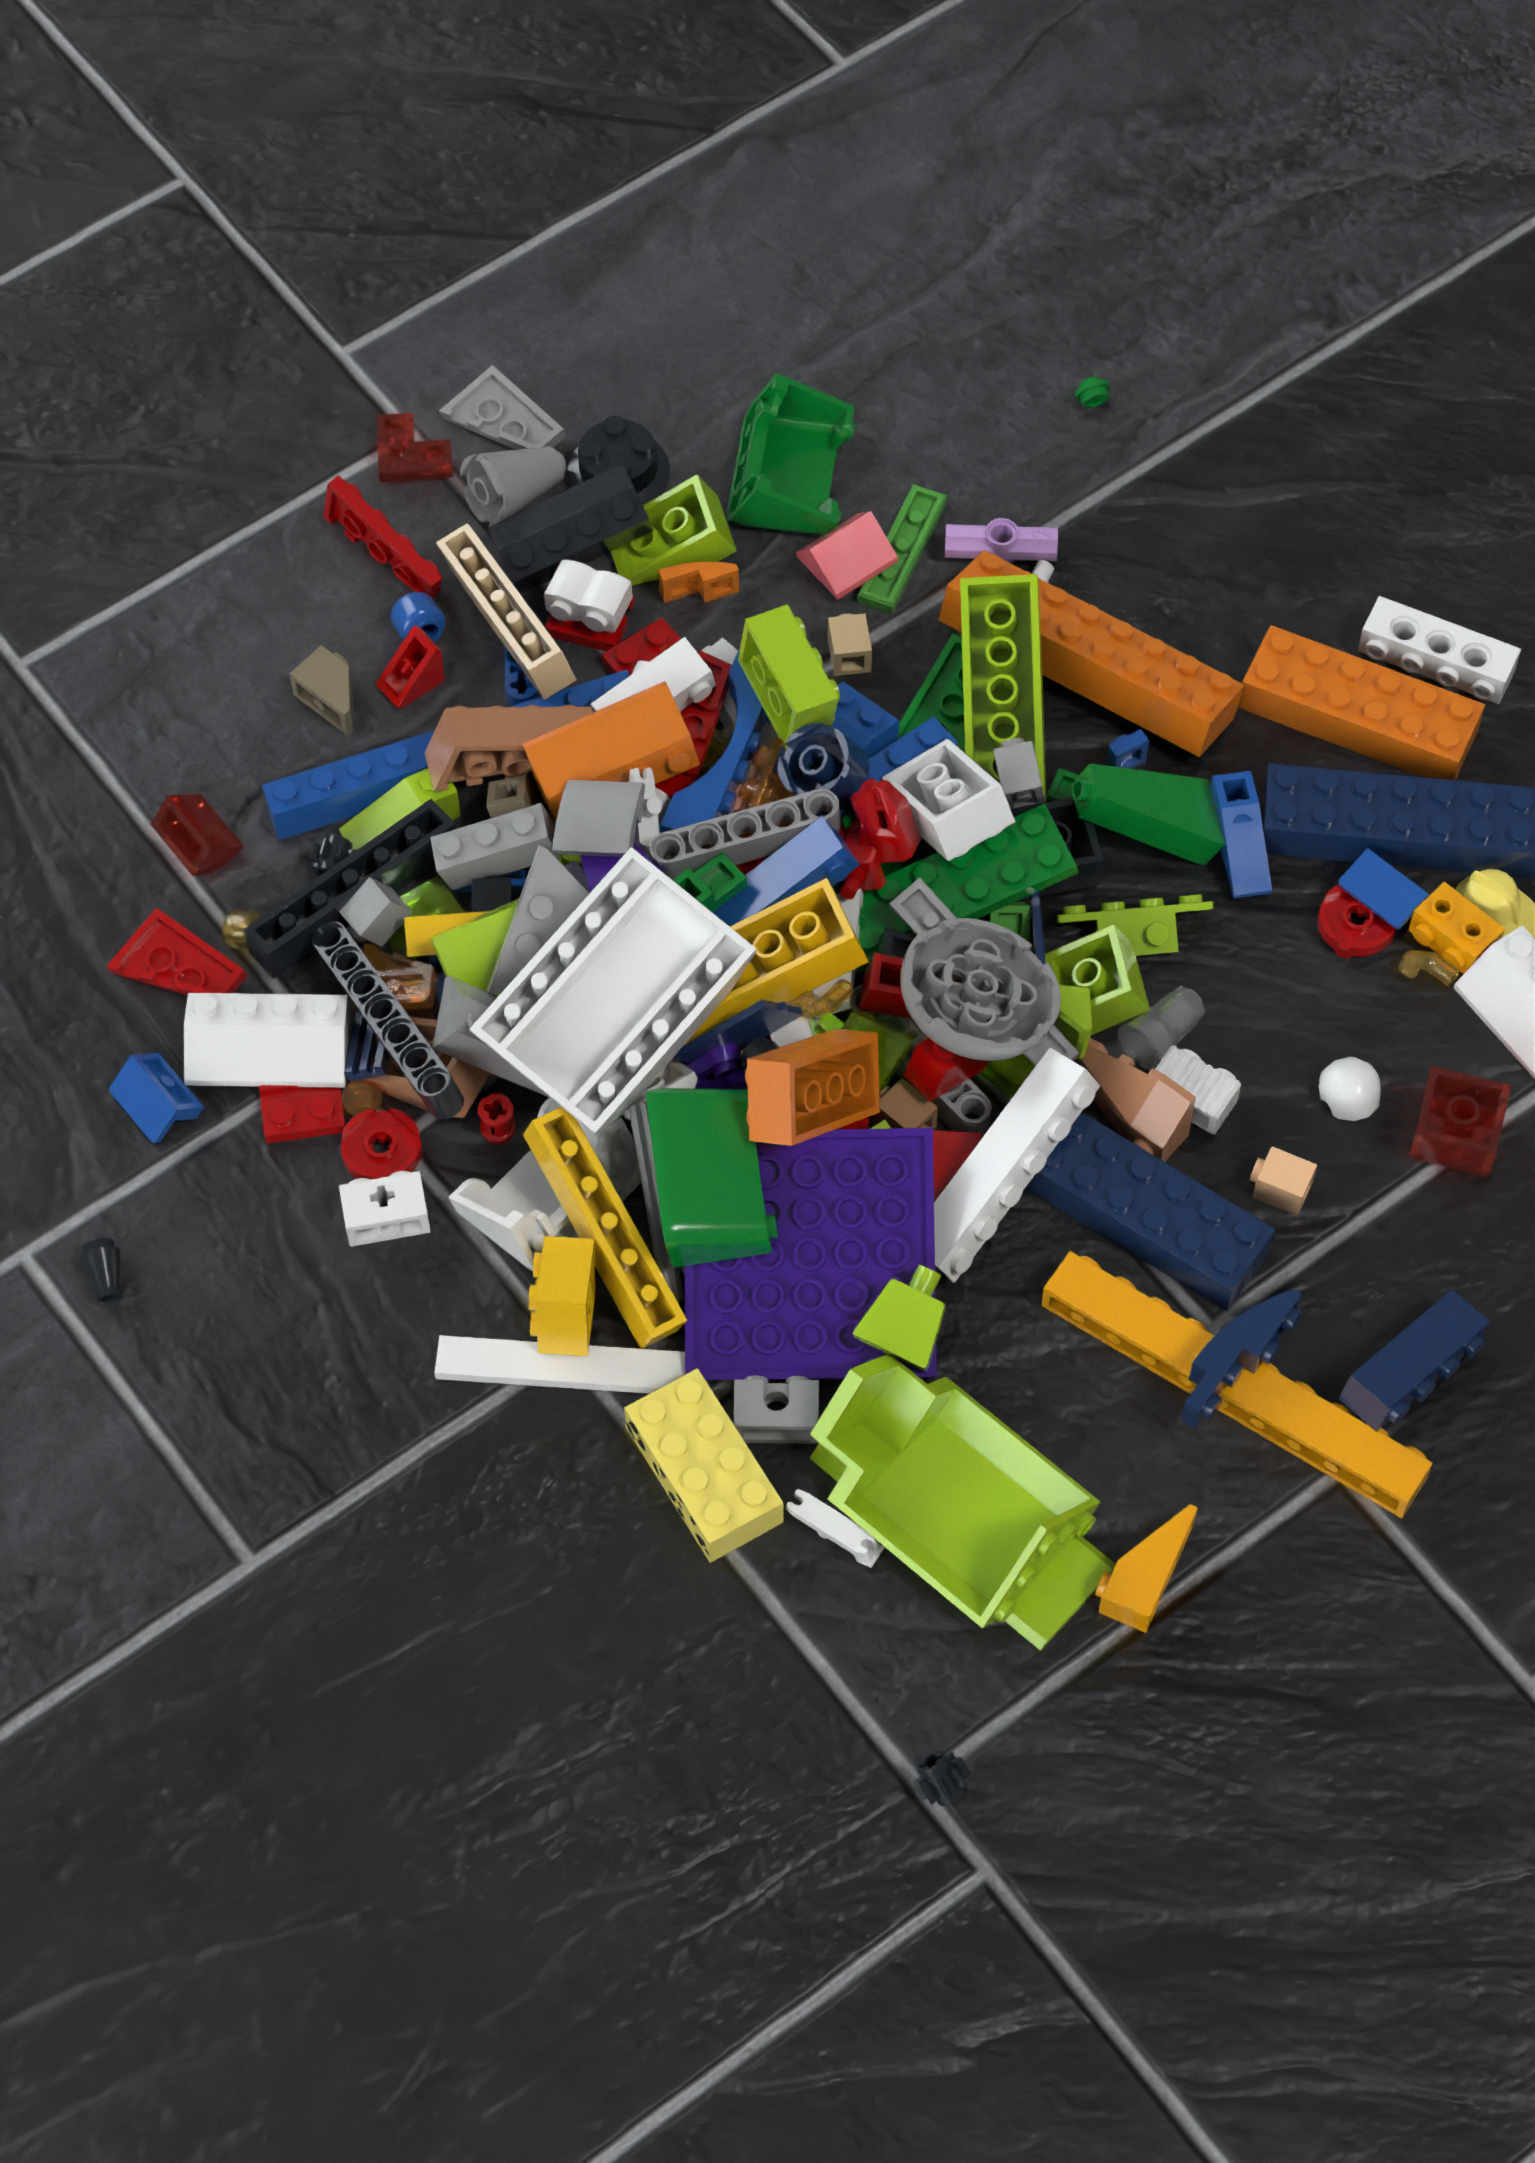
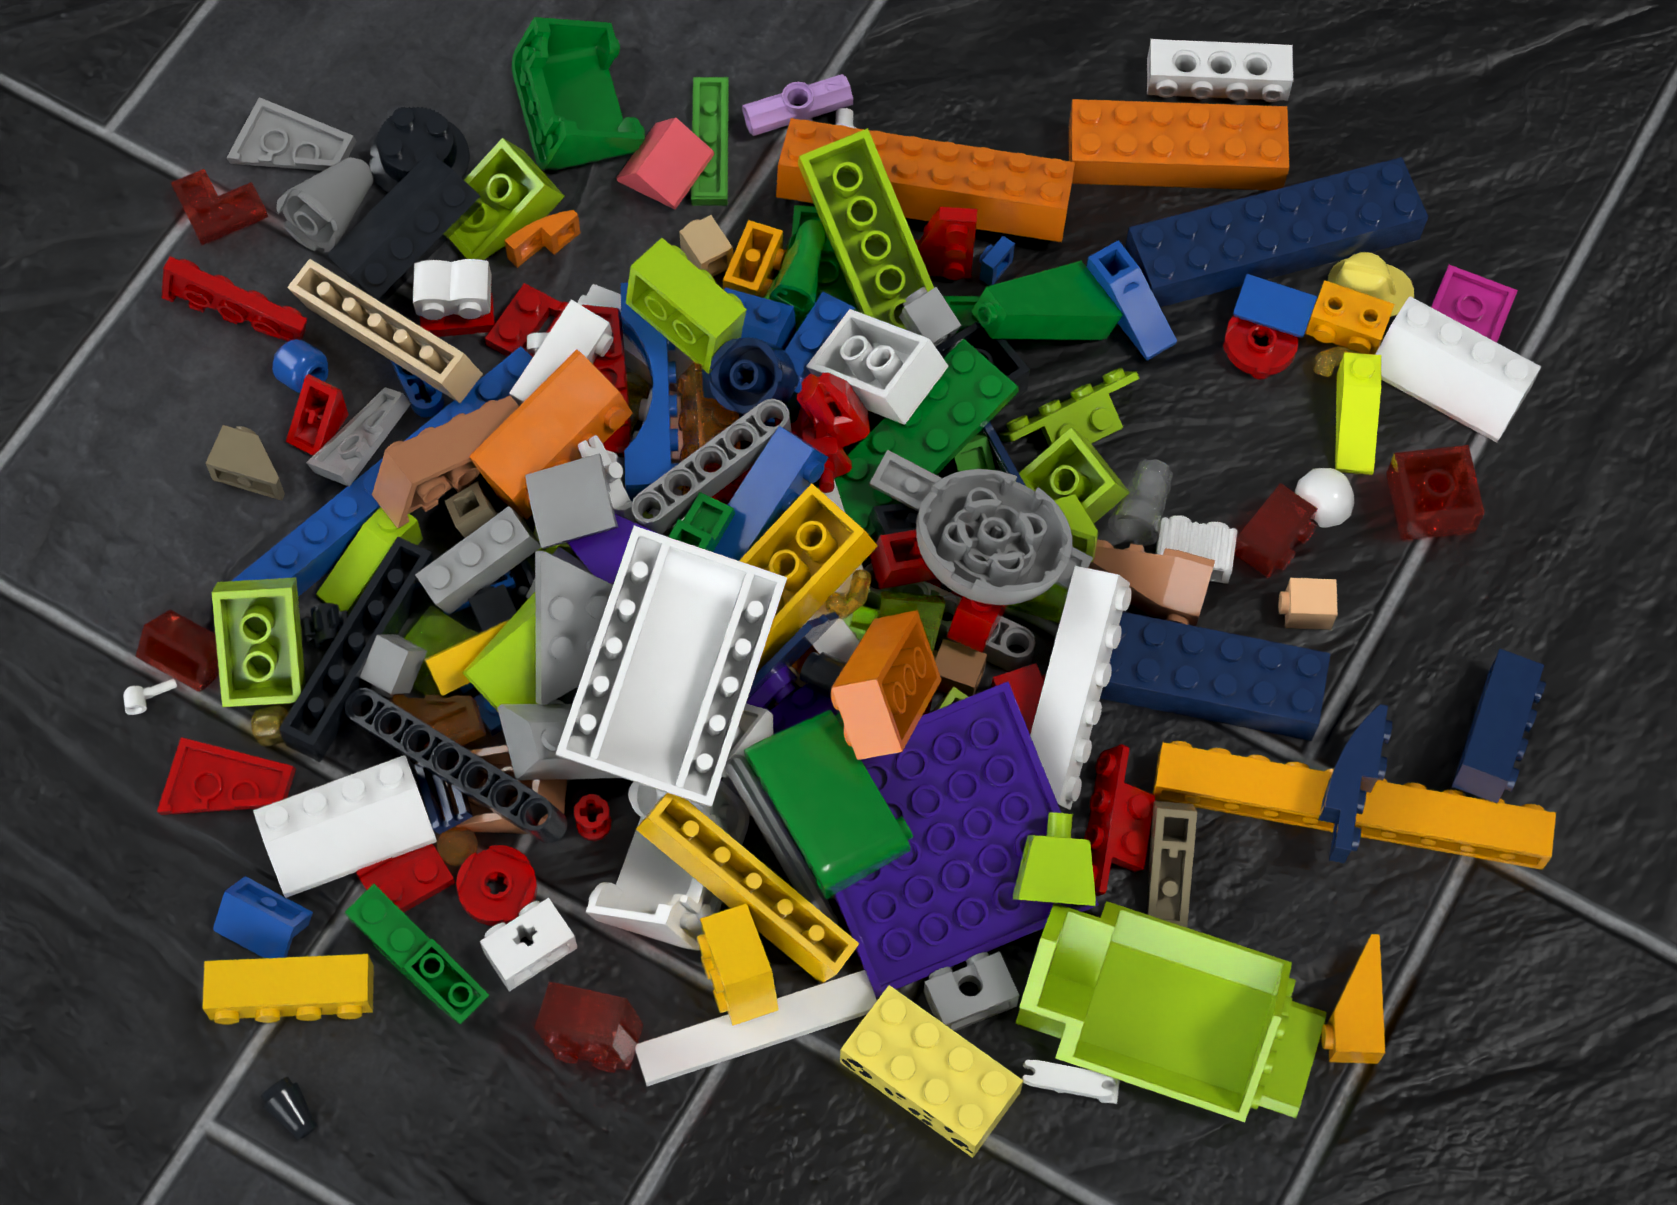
camera: 25 degrees left, 5 degrees up
(134, 859) = (136, 696): none -> white hand
(151, 1163) = (288, 987): none -> yellow brick
(261, 844) = (258, 641): none -> lime brick
(277, 1177) = (416, 955): none -> green slope
(401, 1298) = (589, 1027): none -> clear red brick
(426, 709) = (359, 439): none -> light grey wing
(888, 670) = (755, 259): none -> light orange brick
(916, 697) = (798, 274): none -> green piece
(995, 1313) = (1118, 819): none -> red bracket
(1028, 1365) = (1171, 861): none -> dark tan slope
(1079, 717) = (949, 243): none -> red wing
(1282, 1101) = (1275, 531): none -> clear red brick
(1420, 1020) = (1357, 412): none -> neon yellow slope

